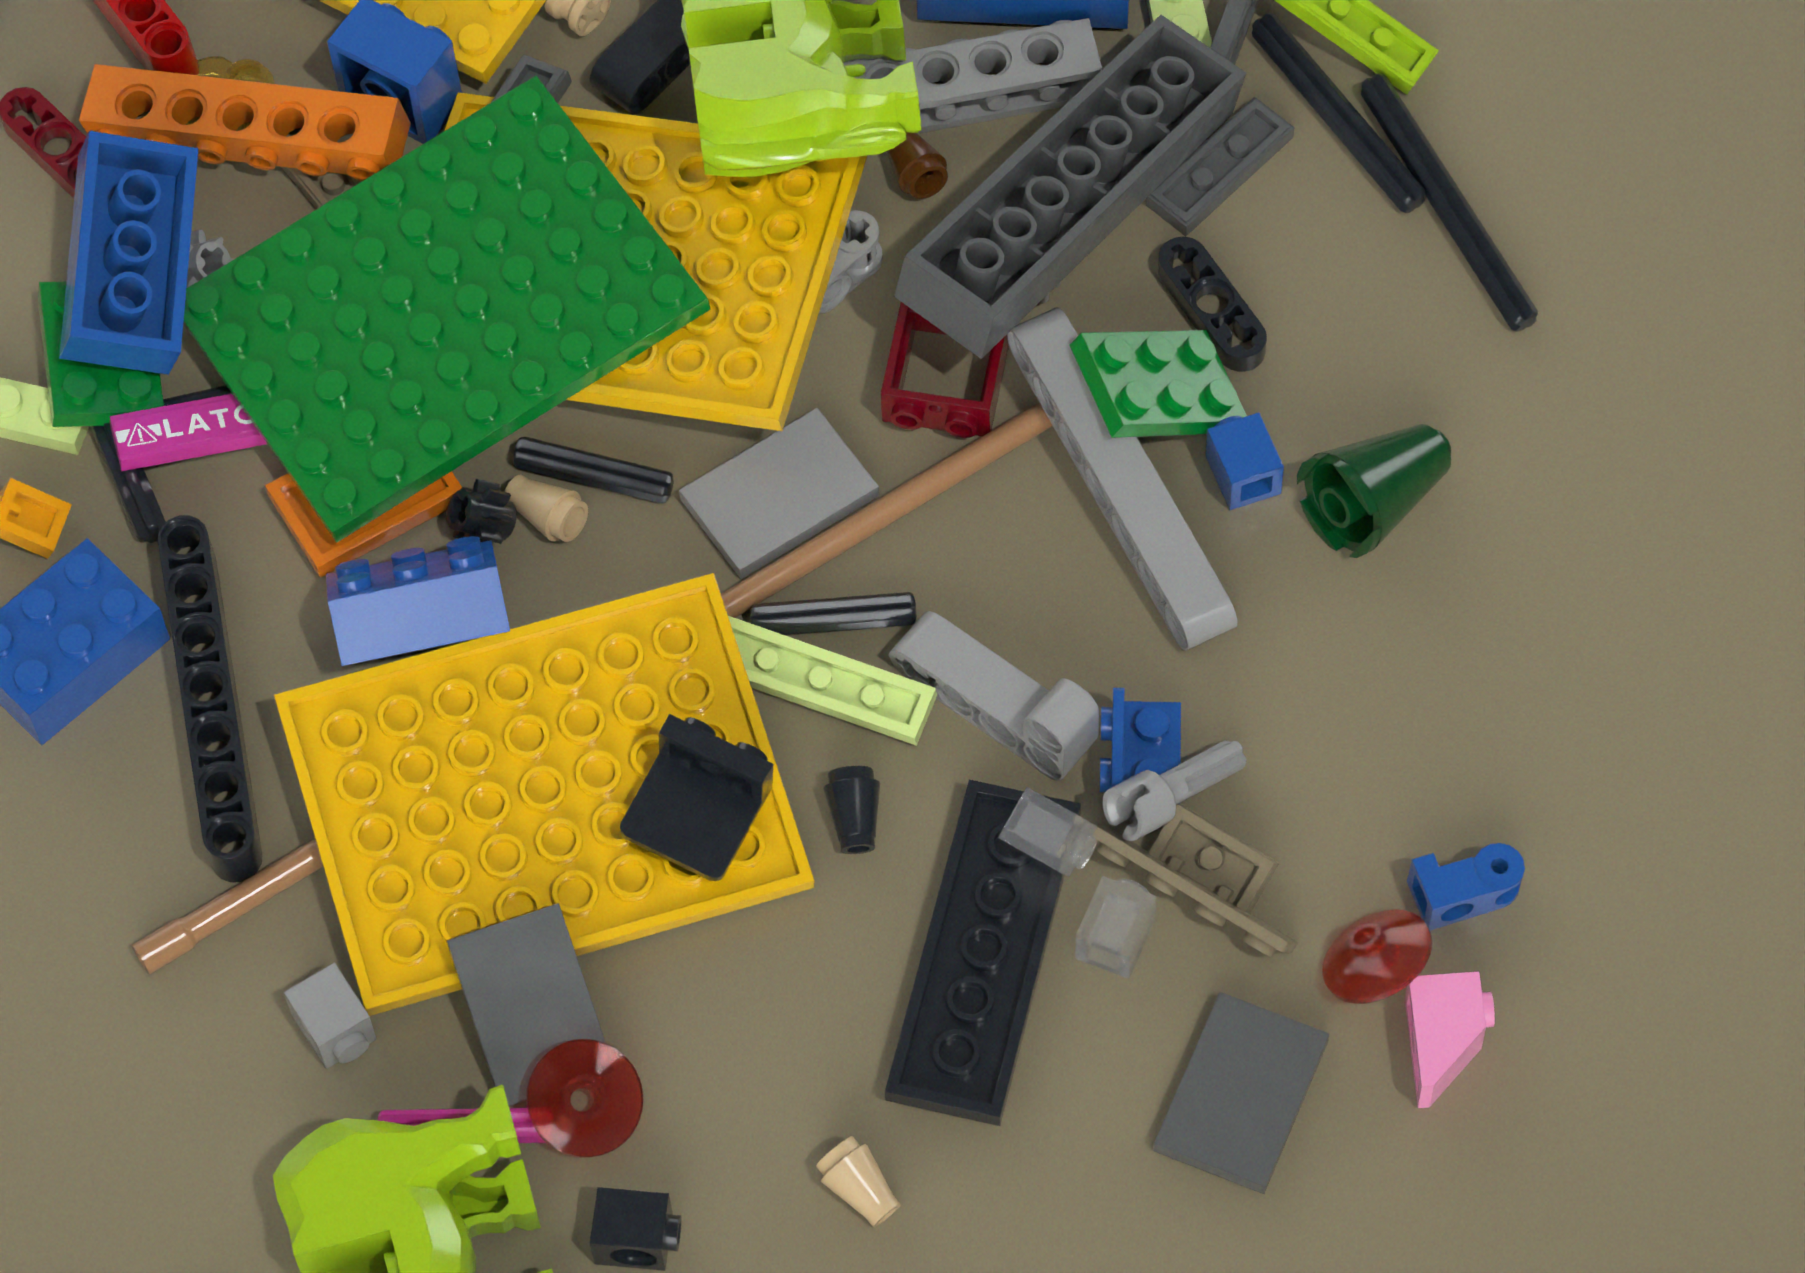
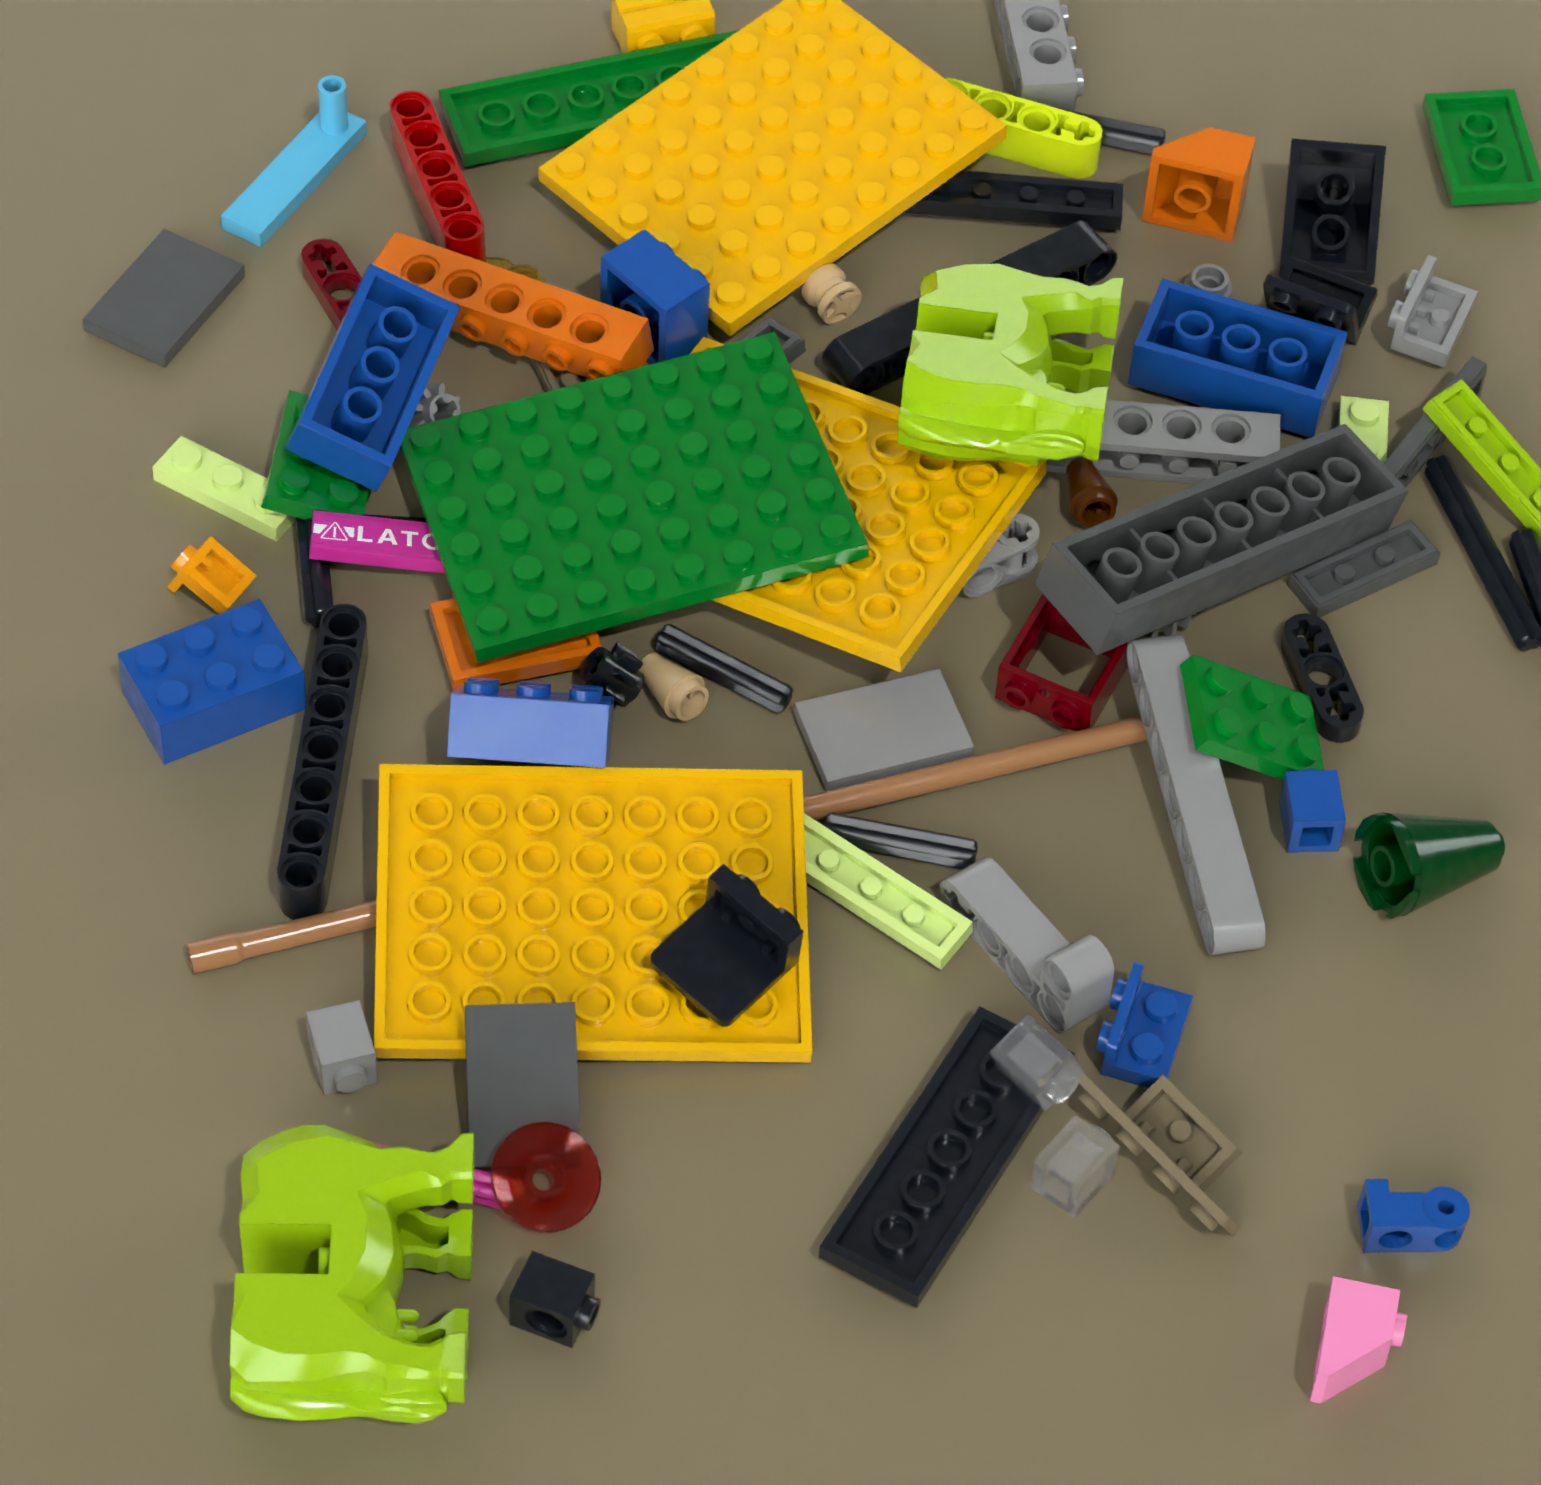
camera: 10 degrees right, 10 degrees down
(854, 807) = (867, 1002): black cone -> none
(857, 1179) = (771, 1314): tan cone -> none
(1152, 798) = (1140, 1062): light grey piece -> none
(1241, 1092) = (1148, 1341): dark grey tile -> none
(1377, 956) = (1309, 1255): clear red dish -> none

